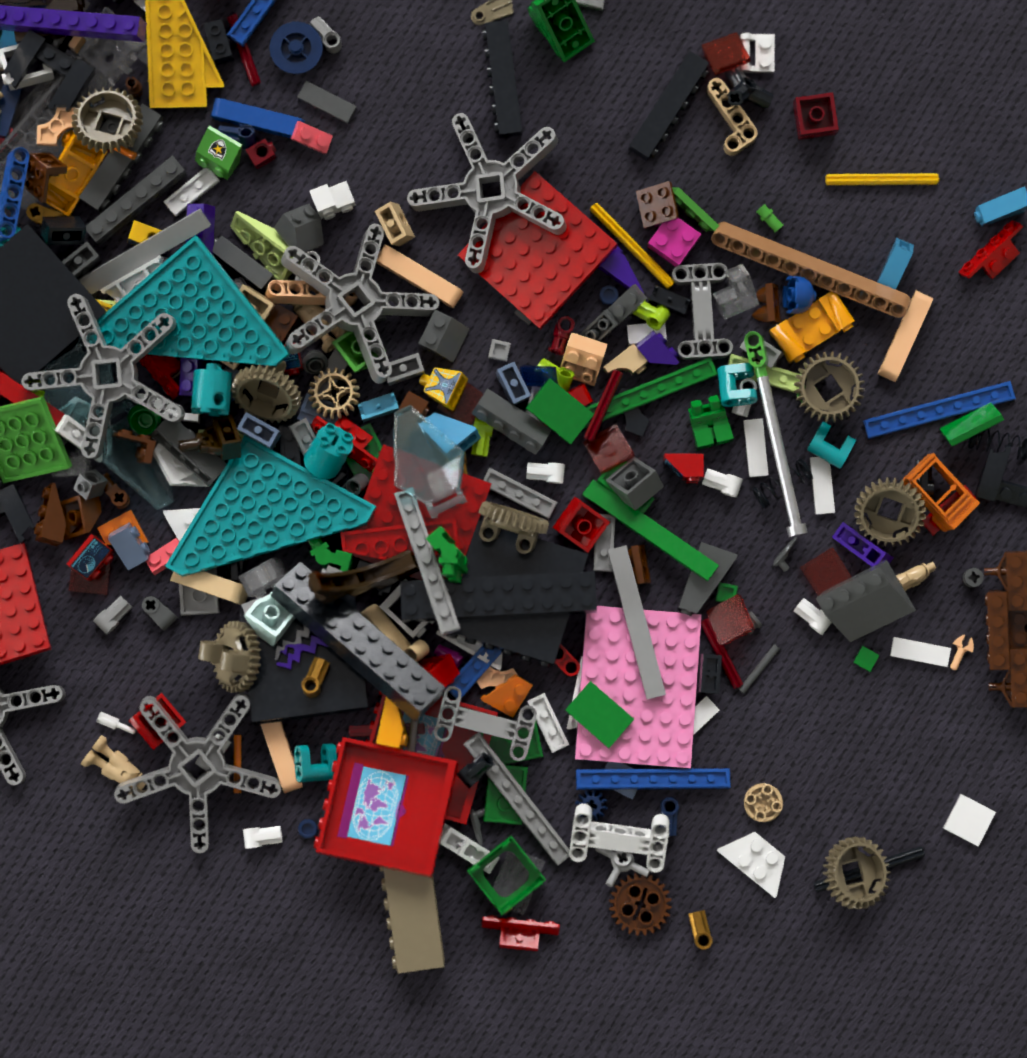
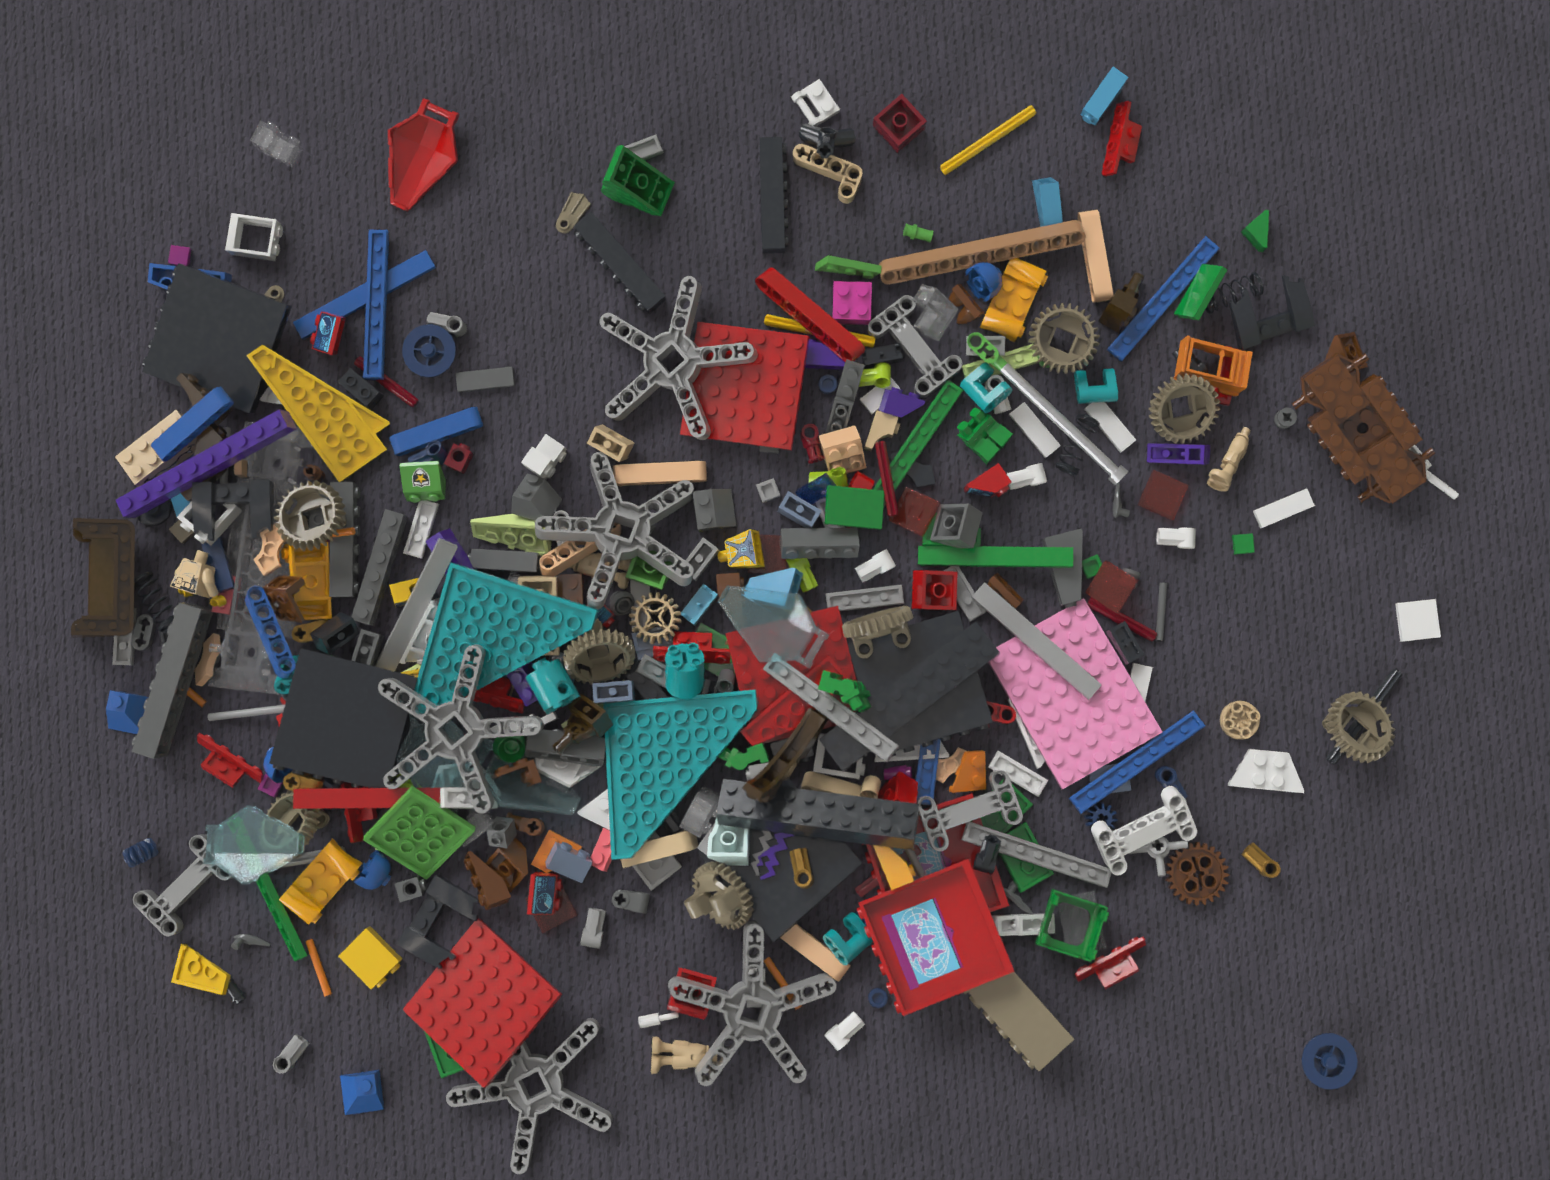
camera: 30 degrees left, 0 degrees up
(311, 137) = (492, 416): coral plate -> none
(599, 714) = (1058, 738): green tile -> none
(631, 227) = (810, 315): none -> red beam
(657, 205) = (819, 282): reddish brown bracket -> none
(725, 53) = (790, 120): clear red tile -> none
(866, 601) = (1214, 496): dark grey slope -> none
(895, 392) = (1122, 305): none -> dark brown brick
(960, 651) = (1316, 484): light nougat bar -> none

